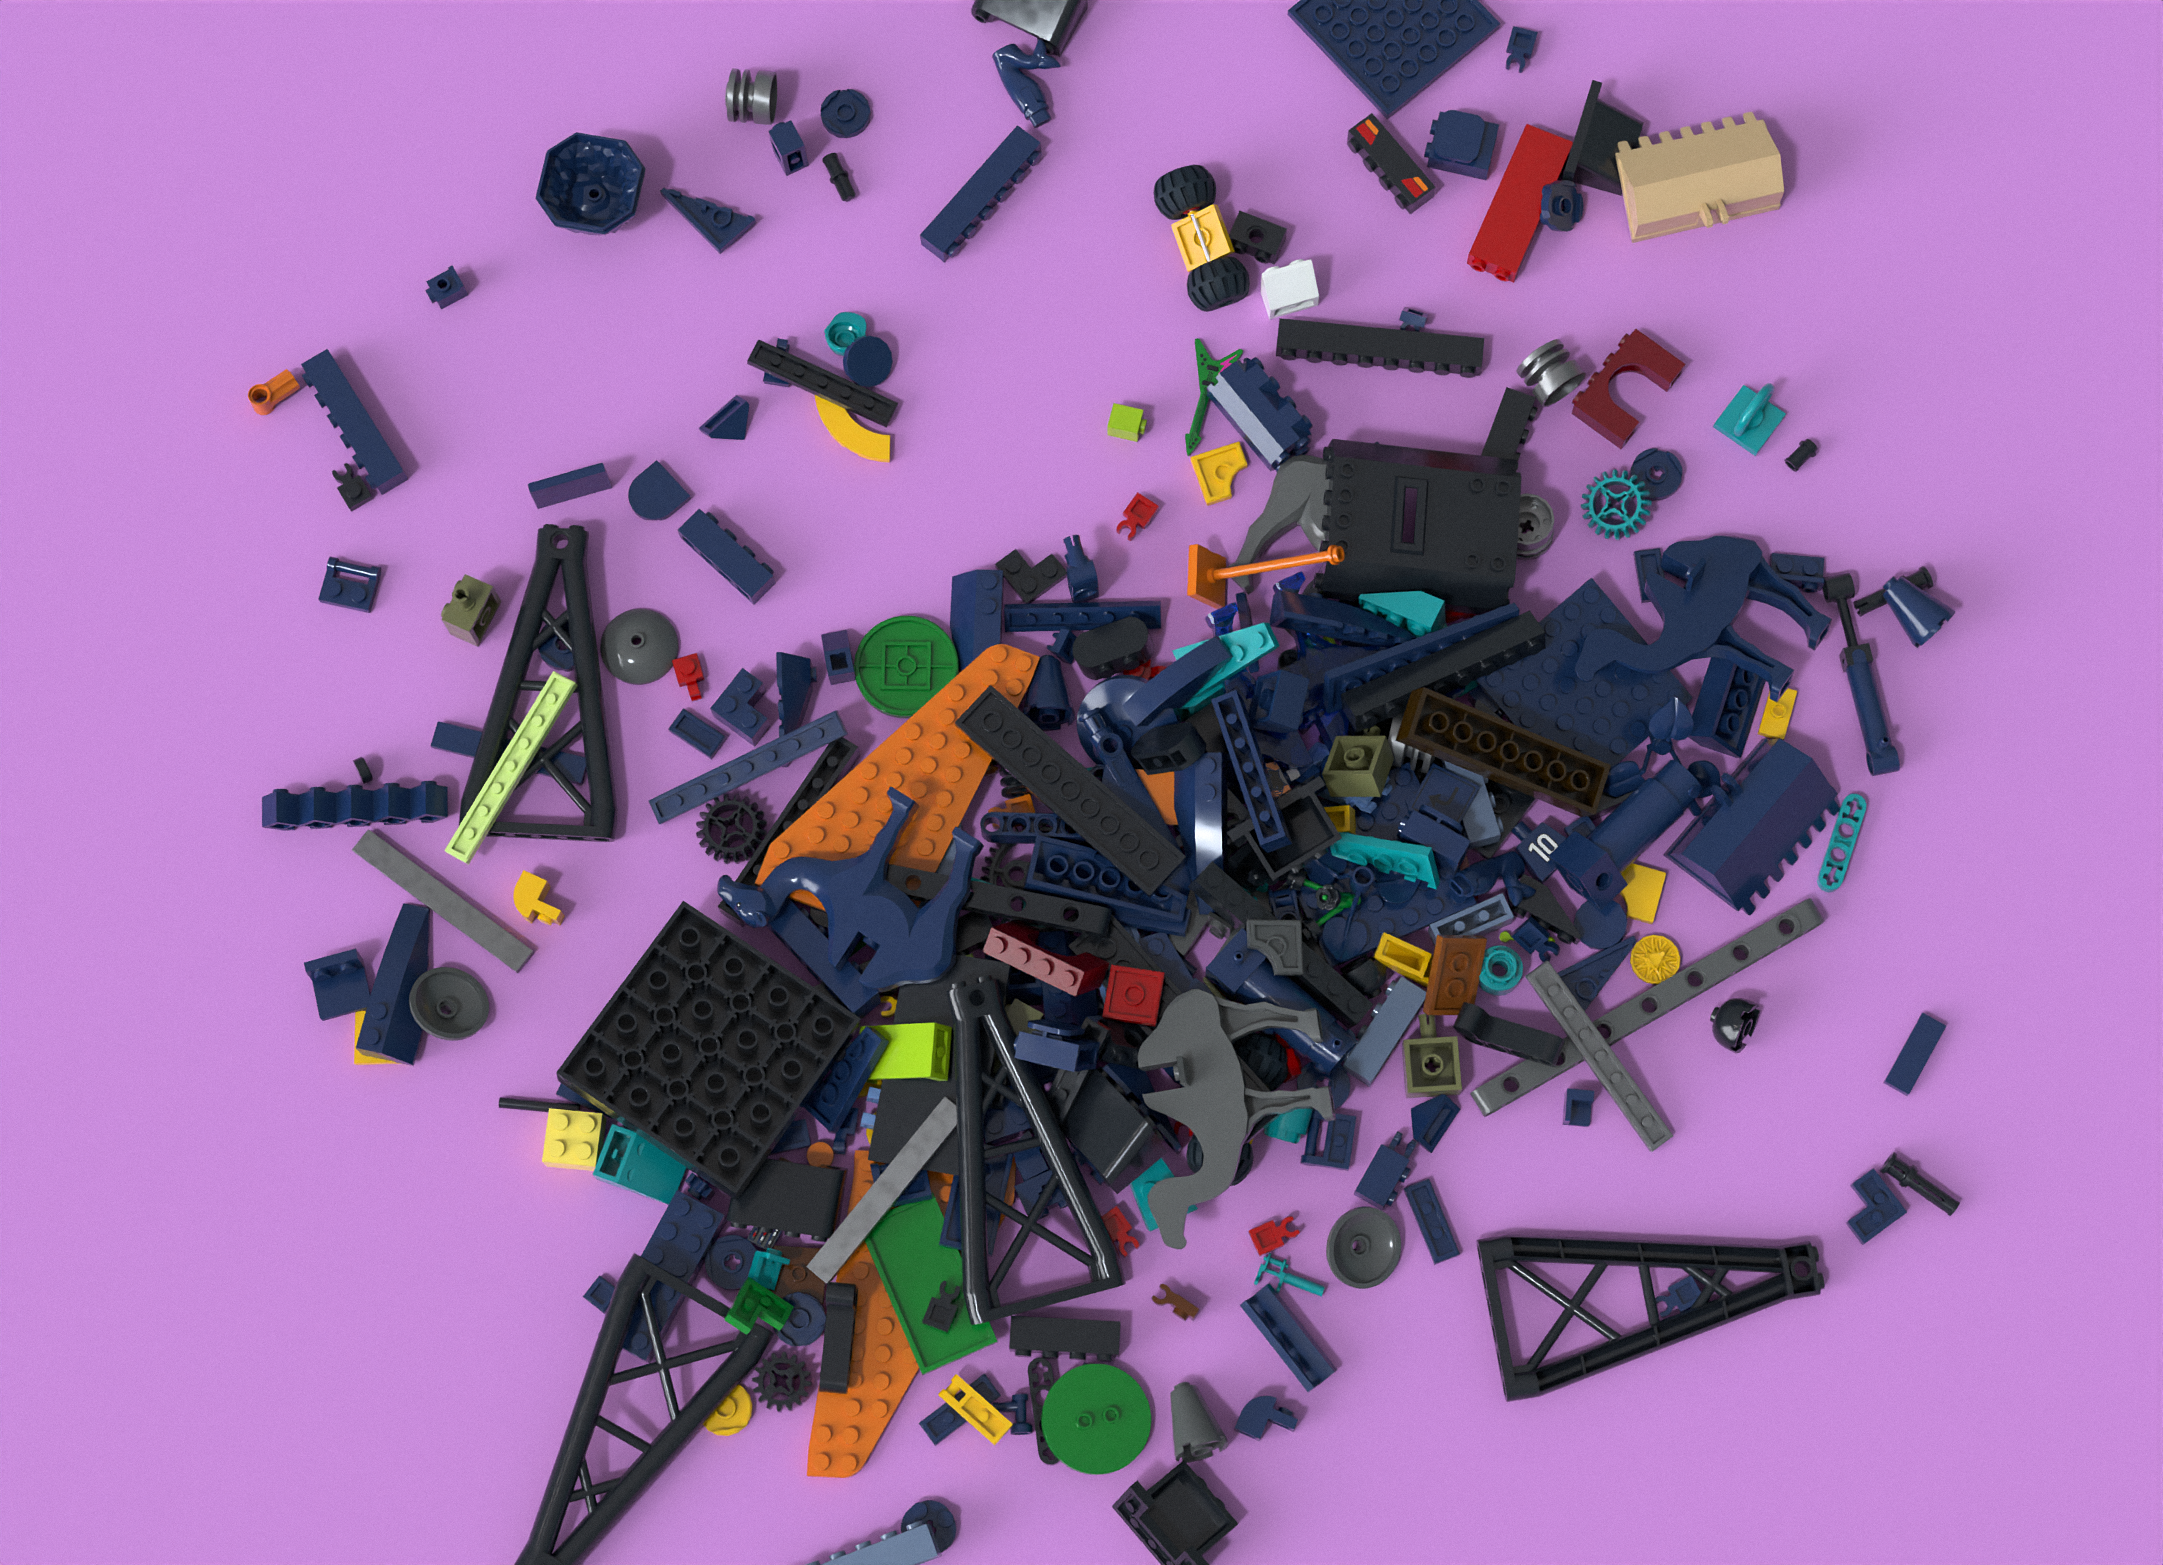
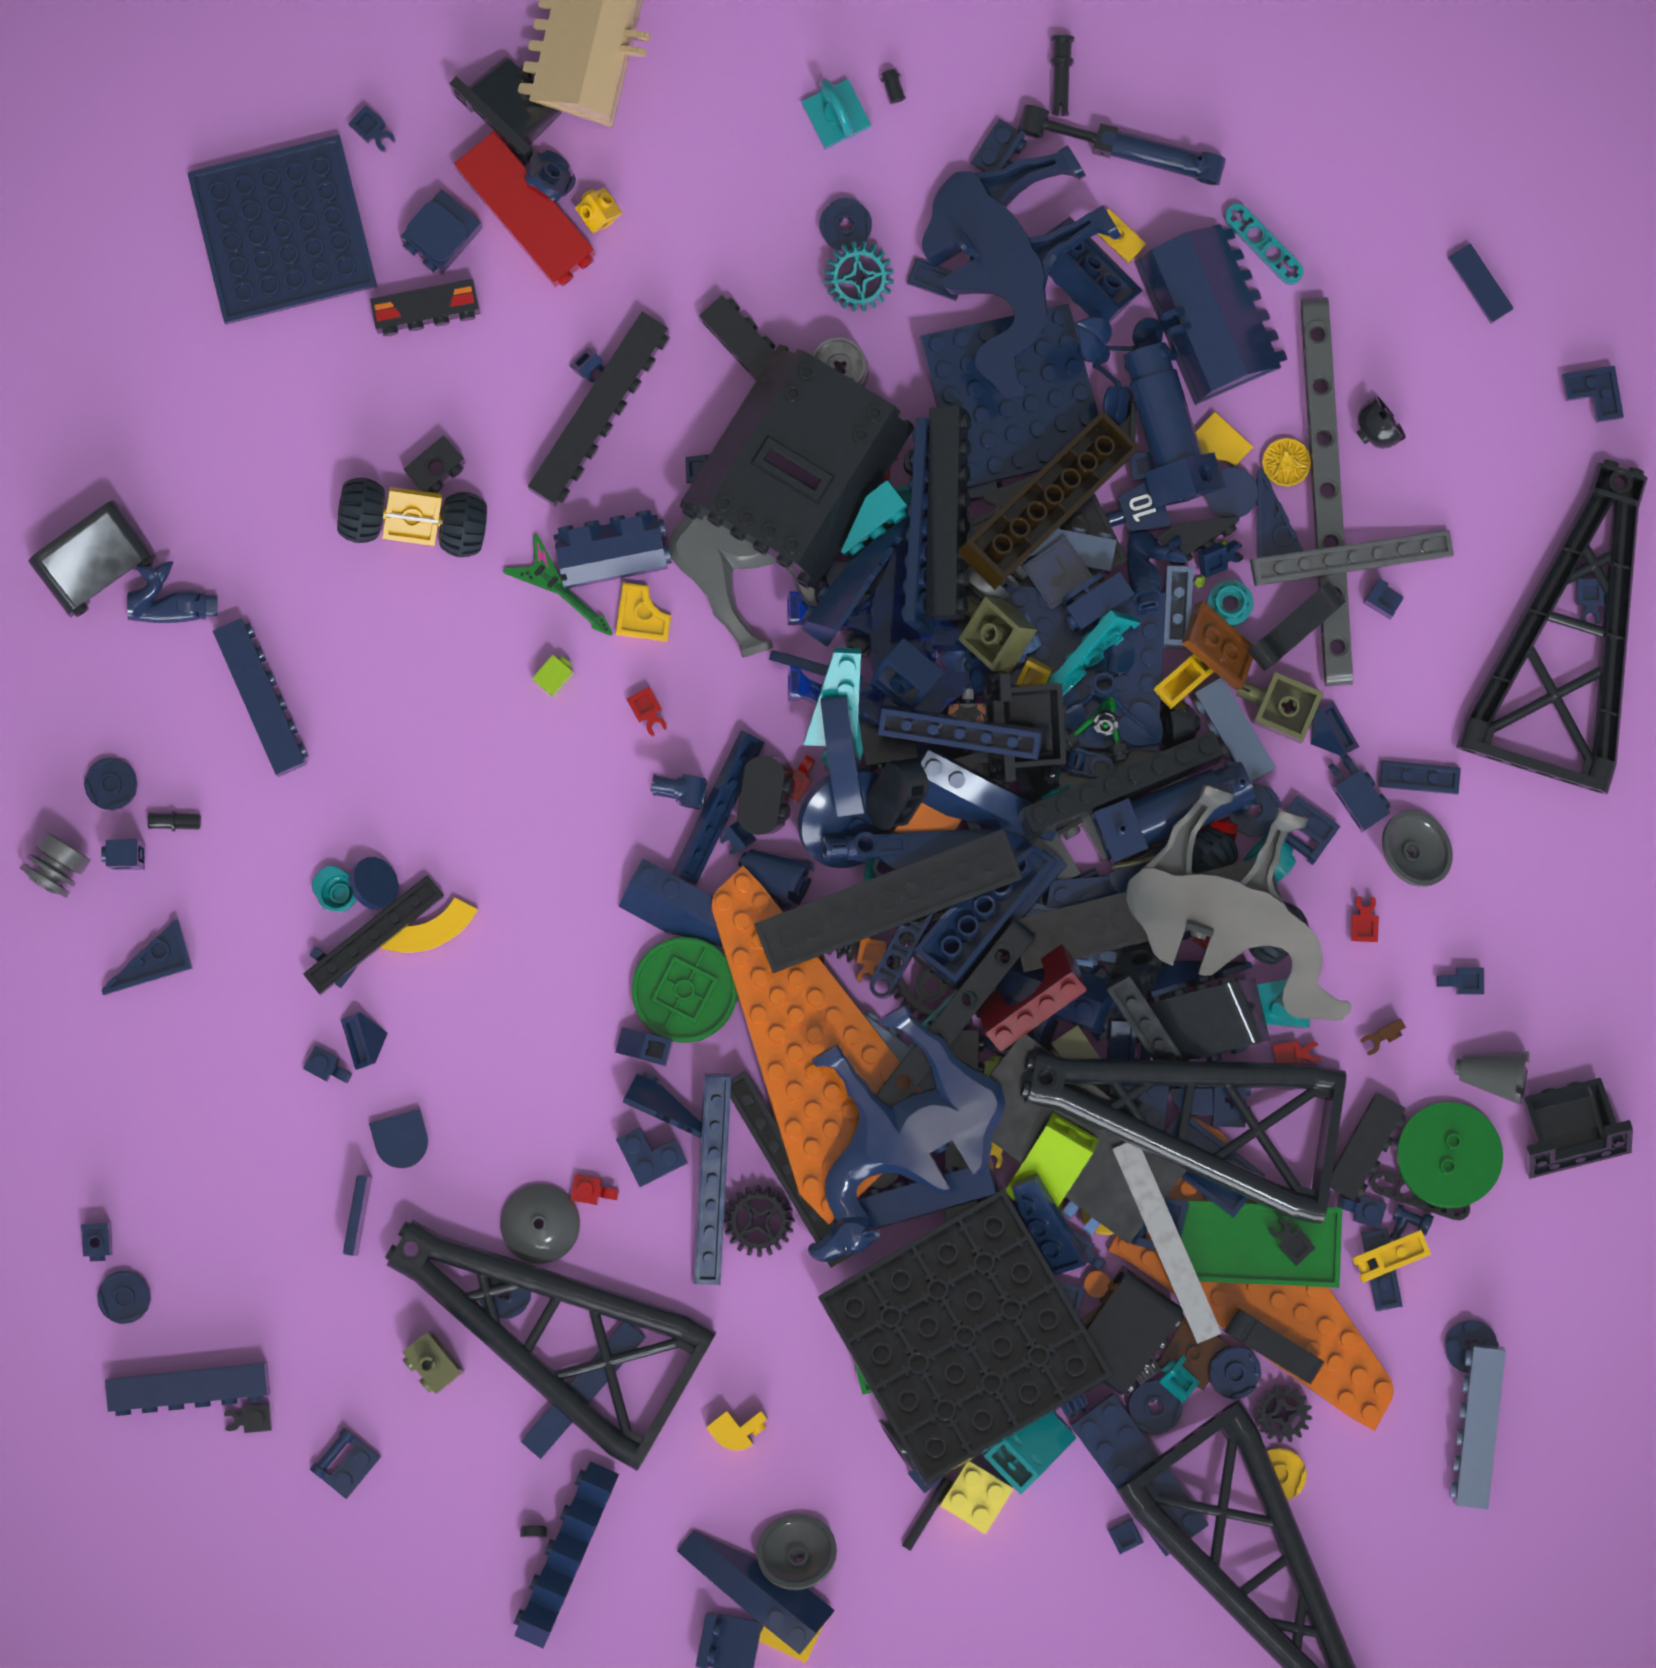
camera: 65 degrees left, 10 degrees up
(275, 391) = (118, 1446): orange piece -> none
(408, 335) = (124, 1297): none -> dark blue tile
(443, 901) = (693, 1514): flat silver tile -> none
(510, 767) = (605, 1394): yellowish green tile -> none
(589, 168) = (47, 1054): dark blue rock -> none
(689, 400) = (324, 1065): none -> dark blue plate
(697, 733) = (651, 1209): dark blue tile -> none
(726, 556) = (497, 1102): dark blue brick -> none
(755, 1302) = (1208, 1404): green plate -> none
(1007, 1369) = (1367, 1210): none -> dark blue plate
(1027, 581) = (660, 838): black plate -> none
(1056, 1046) = (1122, 1028): dark blue brick -> none
(1133, 995) = (1102, 937): red plate -> none
(1209, 573) = (740, 674): orange tile -> none
(1260, 1411) = (1512, 1010): dark blue brick -> none
(1264, 1357) = (1467, 981): none -> dark blue plate
(1279, 943) = (1125, 786): dark grey tile -> none
(1288, 1278) = (1408, 926): teal piece -> none
(1288, 1337) = (1461, 953): dark blue fence -> none
(1289, 288) = (503, 462): white slope -> none
(1550, 371) = (705, 268): flat silver wheel -> none
(1553, 261) = (598, 209): none -> yellow brick
(1635, 355) = (752, 243): dark red arch -> none
(1909, 1173) = (1583, 346): black pin -> none
(1915, 609) = (1093, 65): dark blue cone -> none

